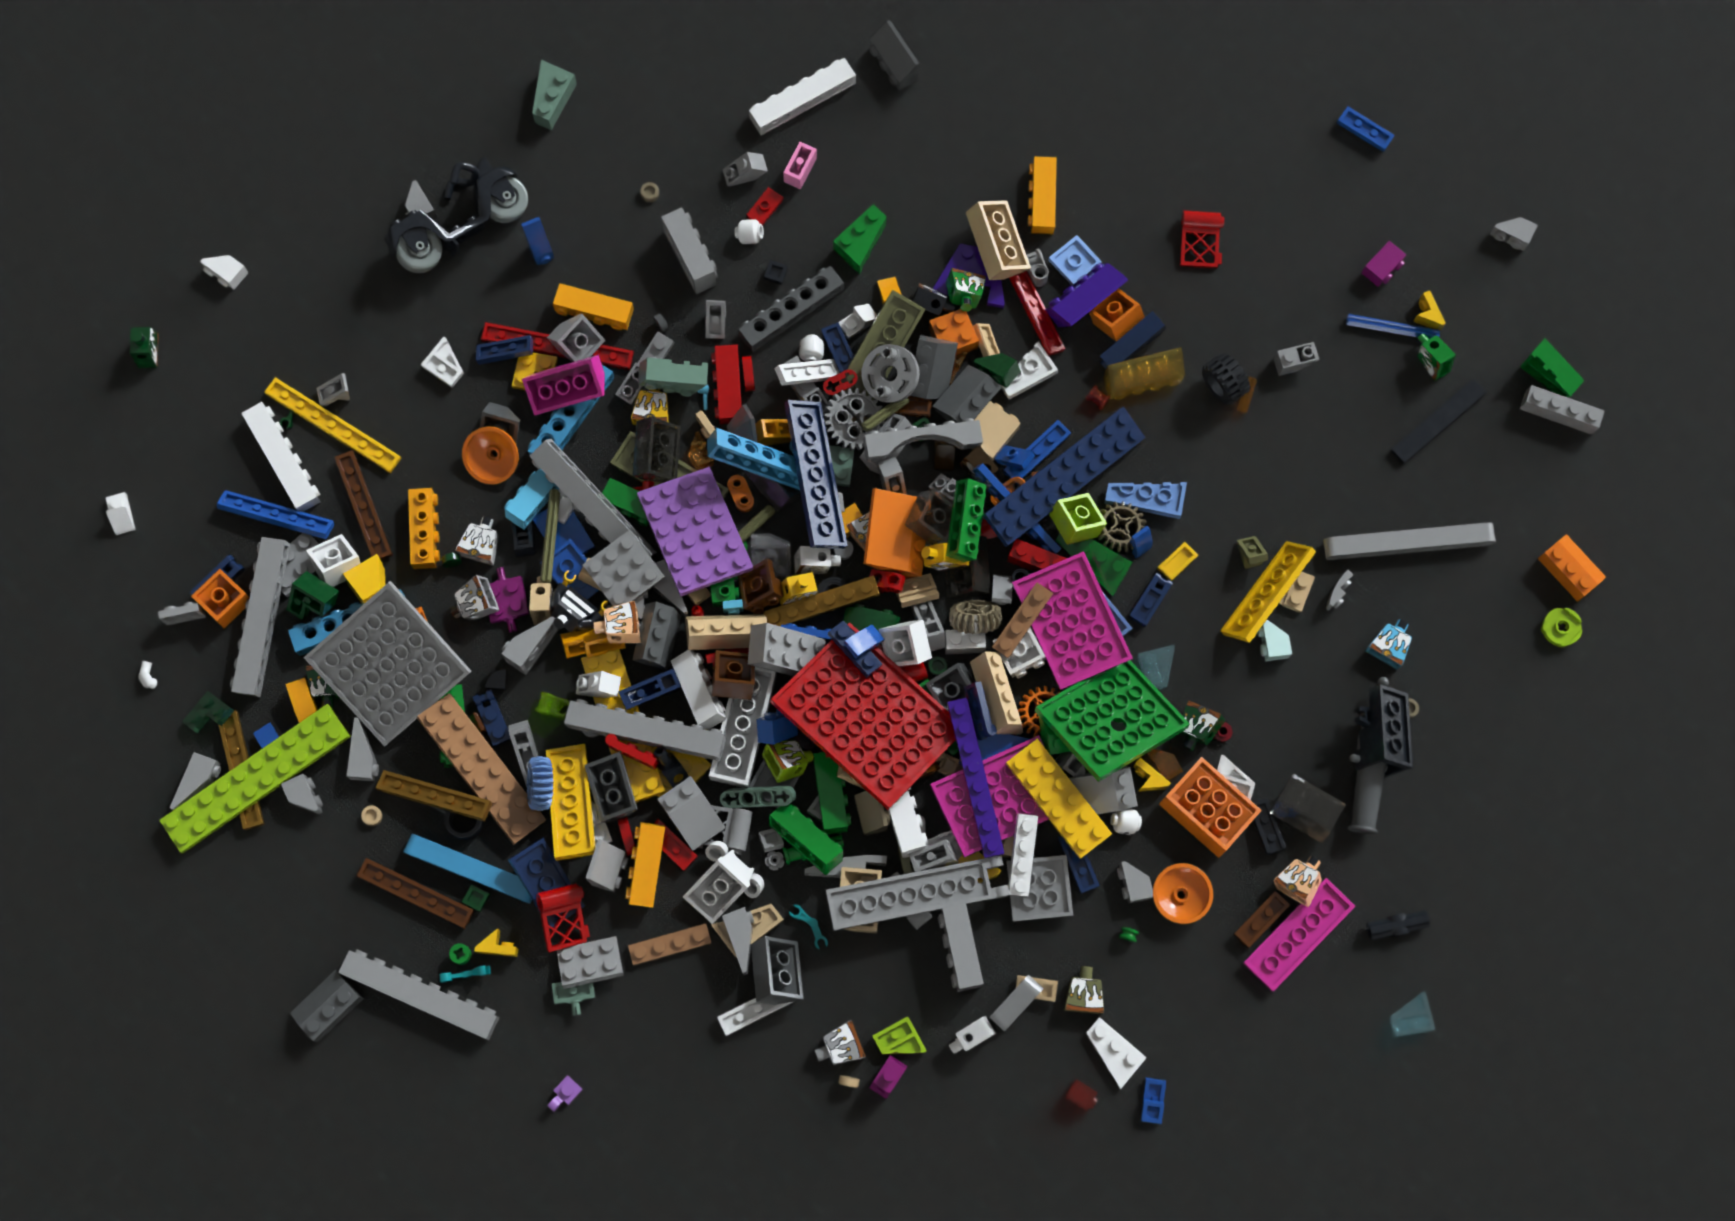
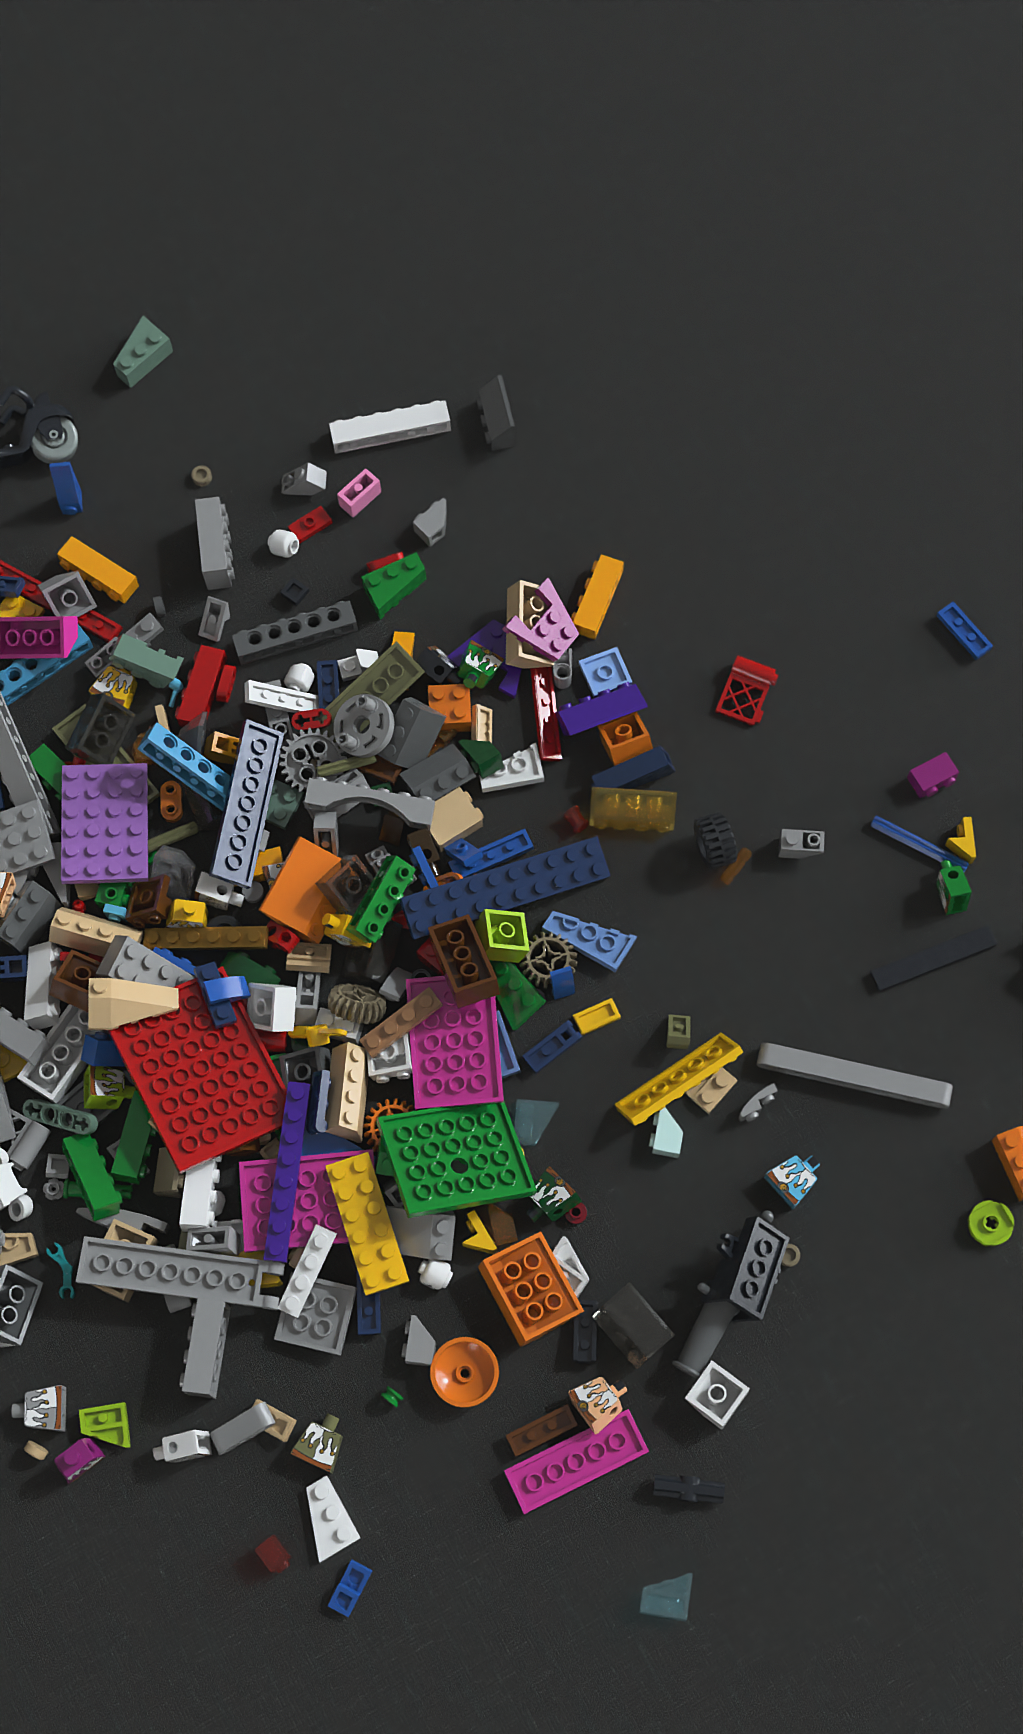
camera: 25 degrees right, 5 degrees down
(782, 681) = (123, 1001): none -> tan wedge
(845, 221) = (381, 562): none -> red beam
(874, 174) = (431, 524): none -> light grey slope
(953, 654) = (316, 1035): none -> yellow piece
(1020, 235) = (553, 629): none -> wing
(1059, 550) = (463, 961): none -> reddish brown brick
(1395, 841) = (717, 1394): none -> white slope

